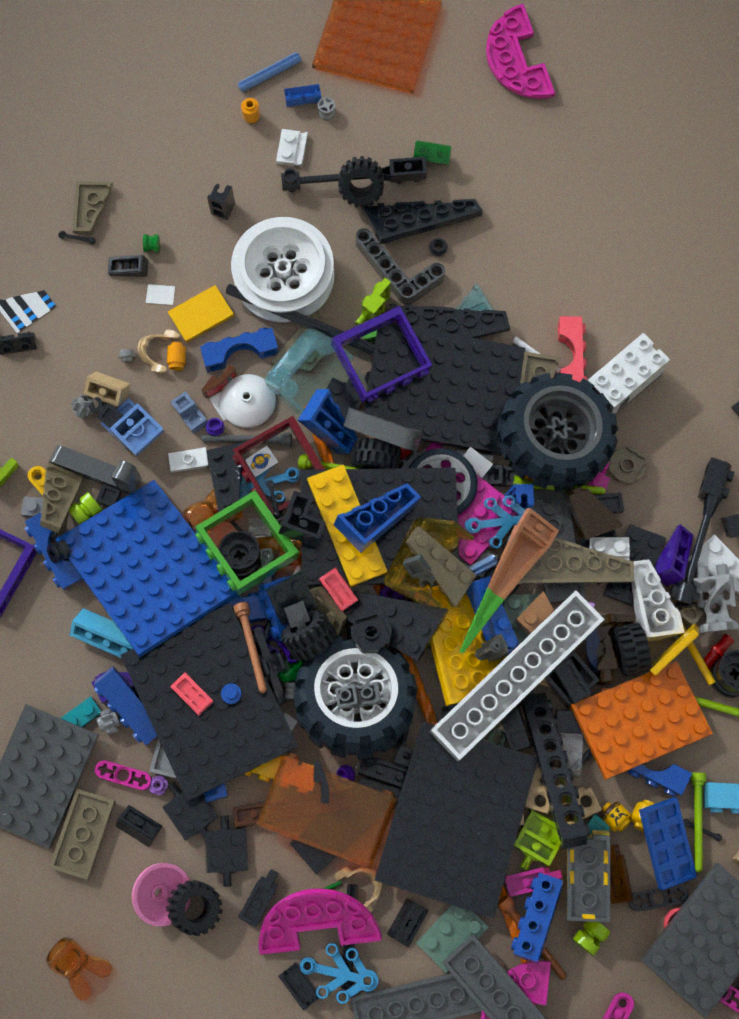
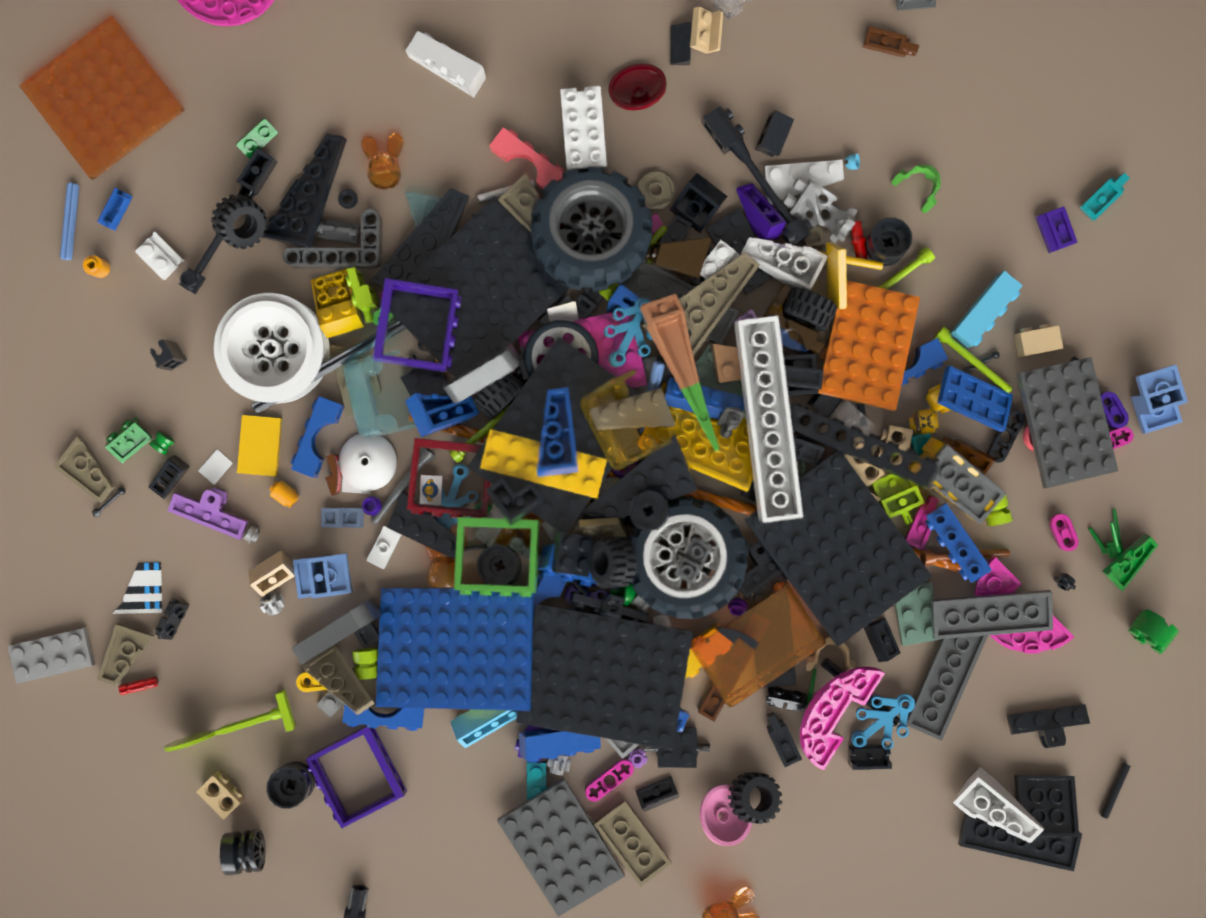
camera: 55 degrees left, 15 degrees up
(58, 551) = (389, 712): black wheel -> none
(107, 414) = (296, 589): black plate -> none
(121, 312) = (209, 512): none -> medium lavender plate
(135, 219) = (127, 440): none -> bracket
(157, 368) = (251, 513): tan helmet -> none
(191, 694) = (591, 689): coral plate -> none
(226, 851) = (727, 741): black plate -> none
(231, 693) = (614, 657): blue plate -> none
(242, 611) = (550, 598): nougat piece -> none
(270, 484) = (490, 512): black hinge -> none
(294, 866) = (795, 699): none -> black hinge
(297, 616) = (592, 560): dark grey plate -> none
(329, 104) = (141, 193): light grey wheel -> none
(338, 589) = (591, 509): coral plate -> none
(347, 293) = (334, 304): none -> yellow slope
(408, 257) = (338, 231): none -> dark grey hinge
(419, 568) = (626, 434): dark grey plate -> none
(483, 254) = (383, 166): none -> clear orange piece
(596, 245) = (446, 63): none -> white wedge
(644, 503) = (698, 202): none -> black slope
(693, 392) = (637, 87): none -> dark red dish

